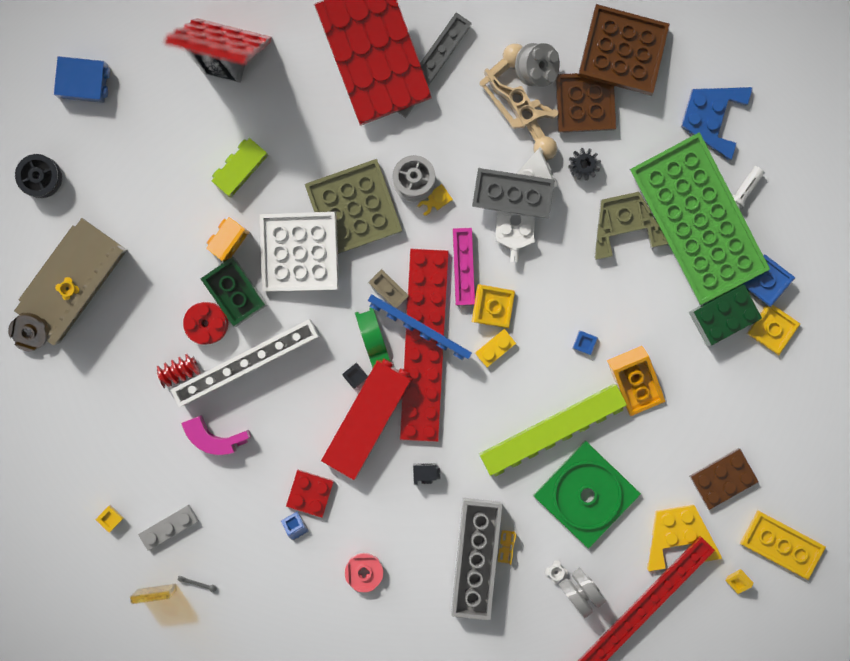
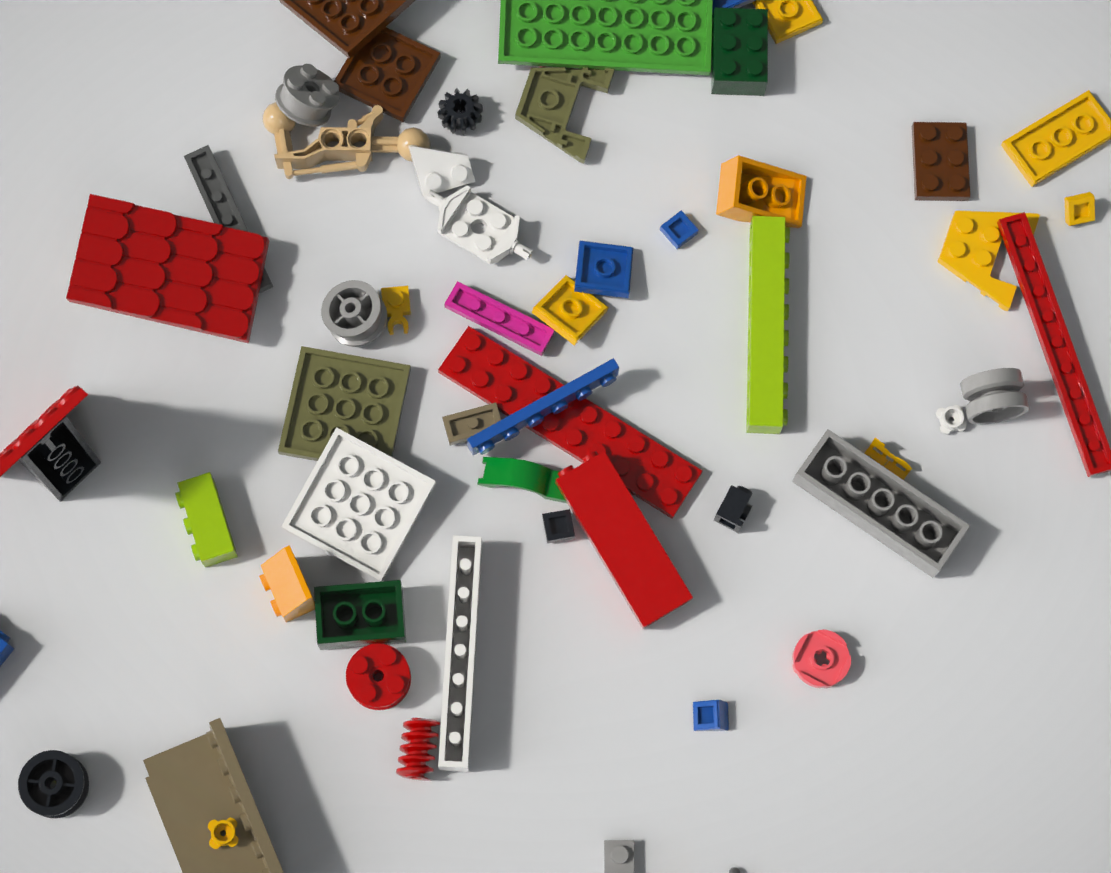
camera: 65 degrees left, 15 degrees down
(204, 440) = (529, 767): dark pink arch -> none
(309, 493) = (678, 671): red plate -> none
(495, 348) = (624, 337): yellow plate -> none
(513, 193) = (445, 205): dark grey plate -> none
(531, 311) = (603, 269): none -> blue plate
(563, 494) = (863, 360): green piece -> none

